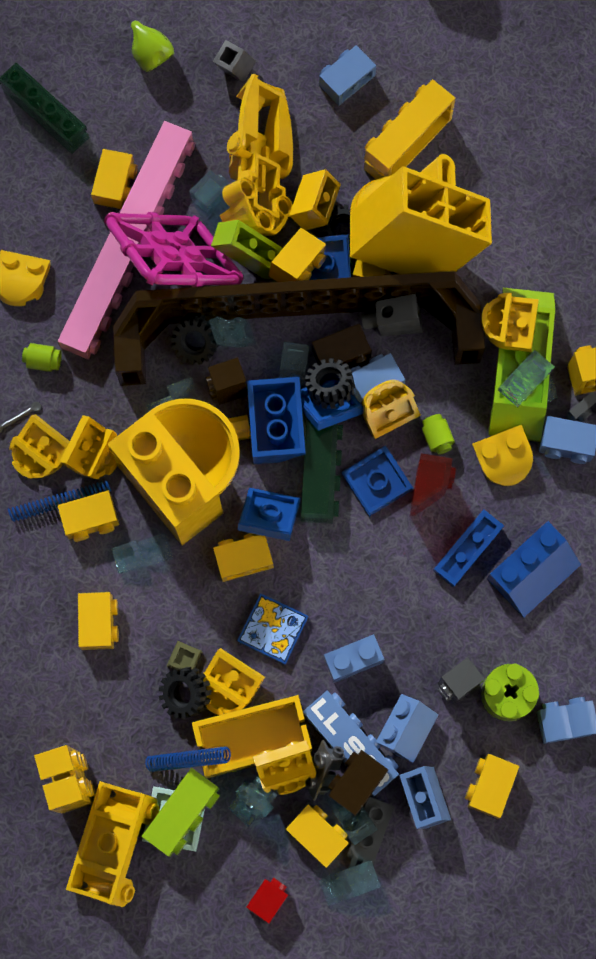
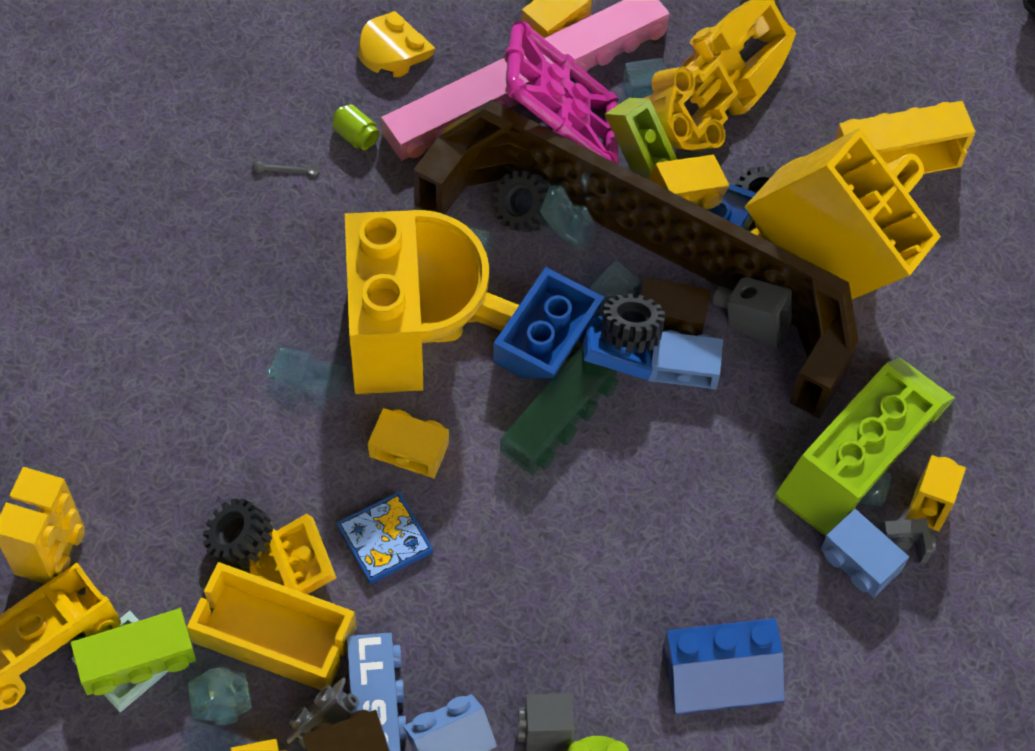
camera: 30 degrees right, 15 degrees down
(37, 449) = (283, 208): yellow slope -> none
(51, 503) = (254, 262): blue piece -> none
(88, 516) = (281, 299): yellow brick -> none
(89, 450) = (324, 239): yellow slope -> none
(96, 621) = (205, 404): yellow brick -> none
(180, 761) = (184, 596): blue piece -> none
(184, 656) = (270, 501): olive tile -> none
(227, 381) = (523, 256): dark brown brick -> none
(269, 514) = (468, 416): blue tile -> none
(285, 768) = (279, 676): yellow slope -> none
(315, 200) = (752, 147): yellow brick -> none
(347, 75) = (875, 59): medium blue brick -> none
(353, 658) = (447, 622): medium blue brick -> none
(377, 481) = (614, 463): blue tile -> none
(388, 407) = (682, 392): yellow slope -> none
(431, 482) = (669, 494): clear red slope -> none
(438, 434) = (717, 456): lime brick -> none
(468, 548) = (665, 595): blue plate -> none
(505, 456) = (776, 526): yellow slope -> none
(510, 322) = (879, 381): yellow slope -> none
(526, 378) = (856, 448): clear light blue slope -> none

